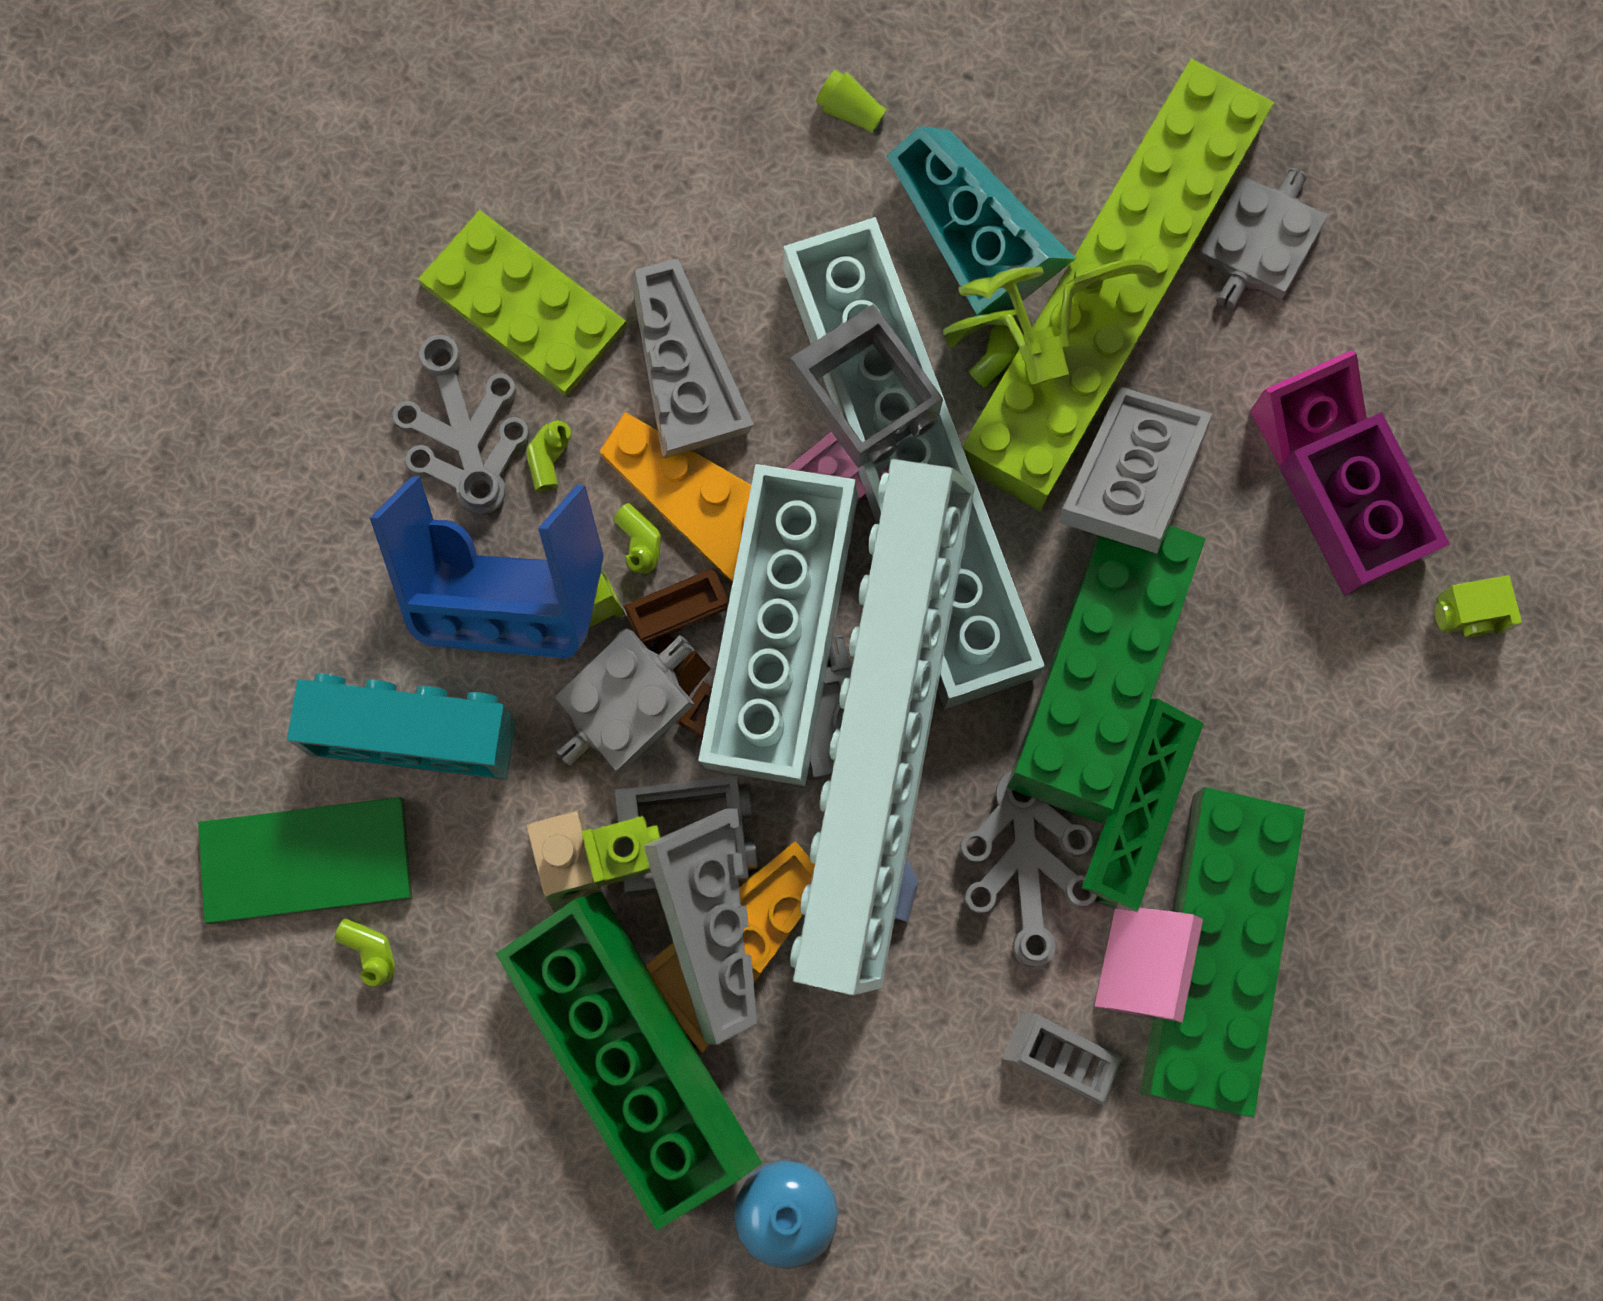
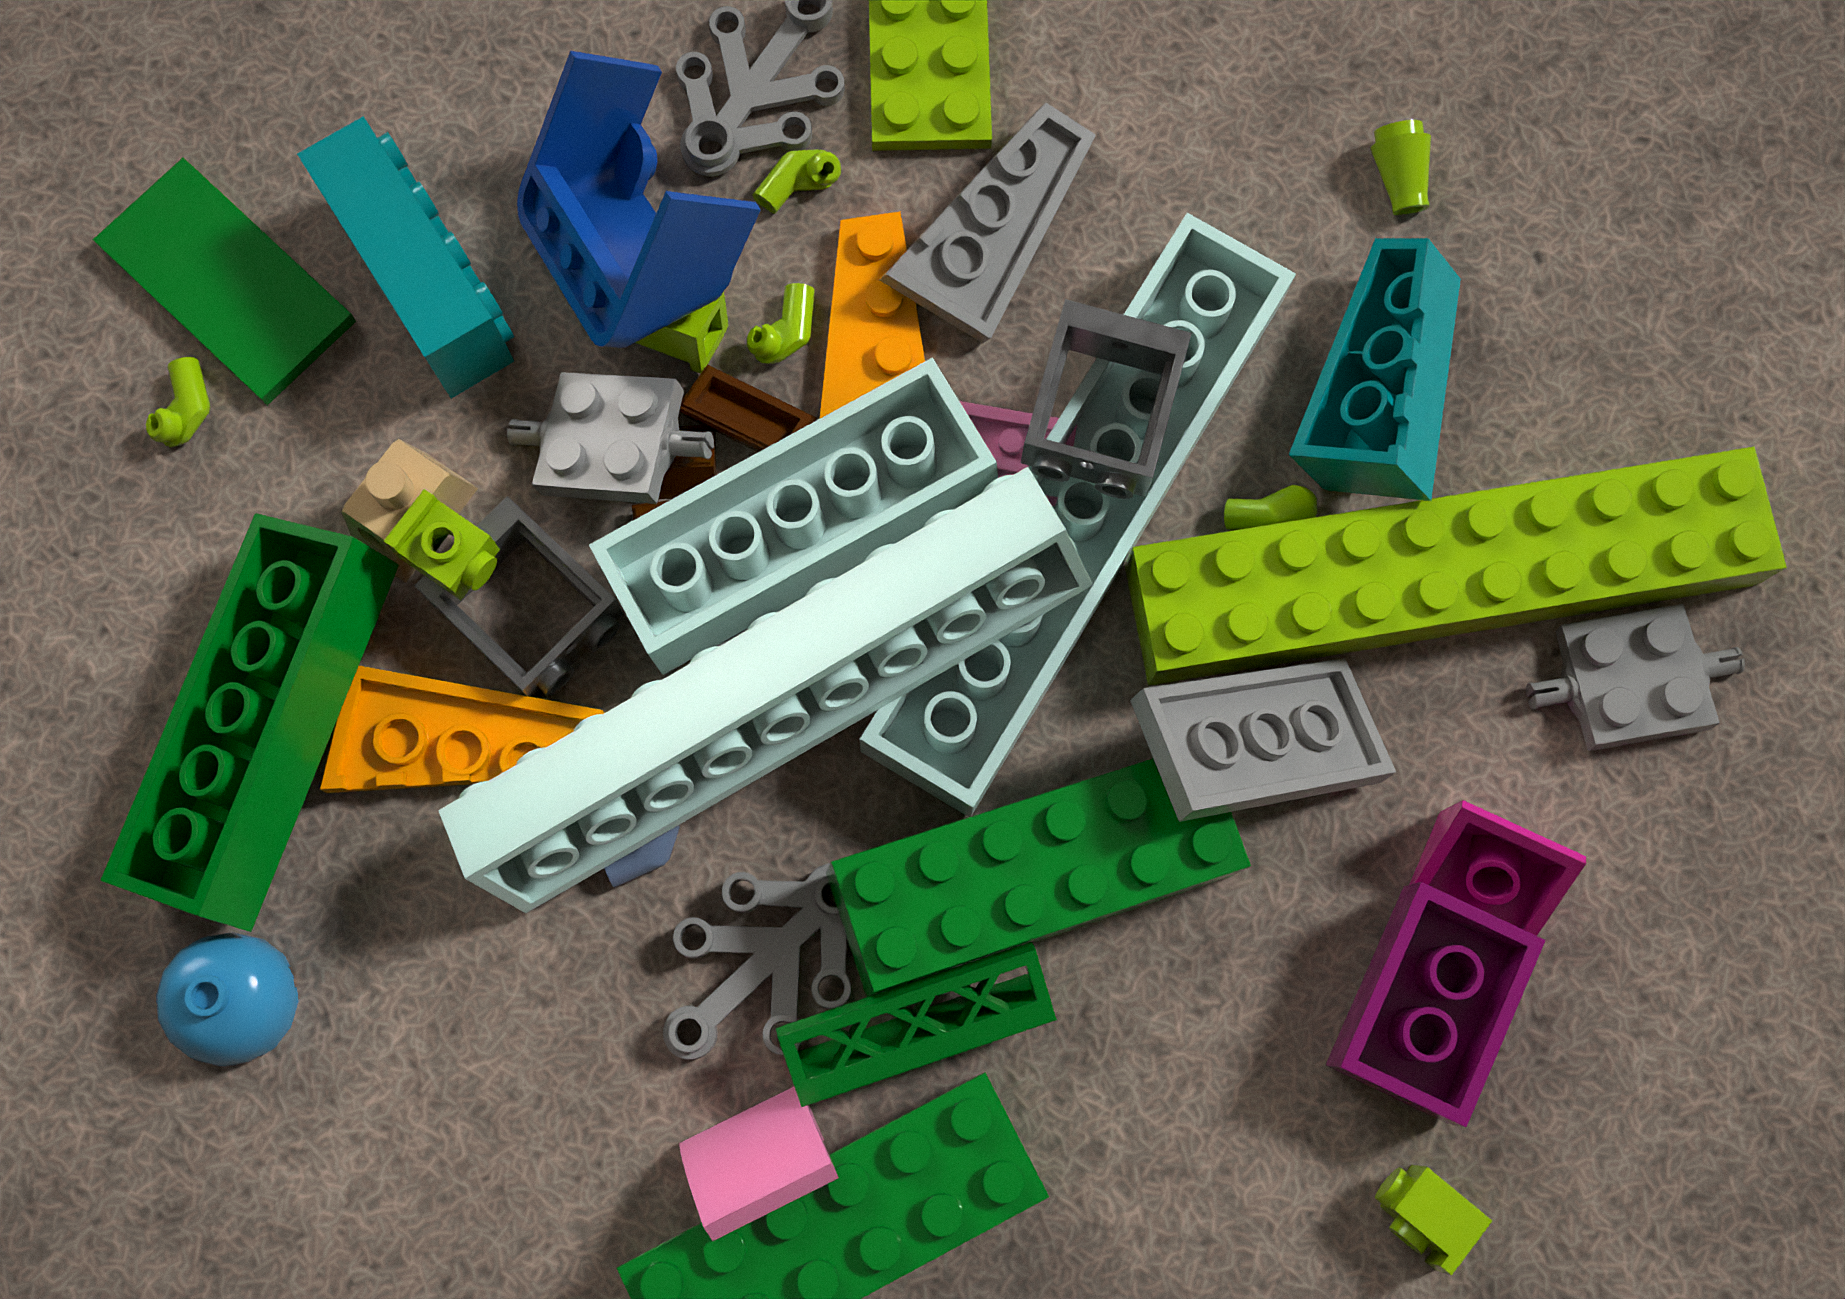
camera: 50 degrees right, 0 degrees up
(701, 901) = (450, 667): light grey wing -> none
(1023, 1039) = (583, 1096): light grey slope -> none
(1039, 348) = (1297, 535): lime plant -> none

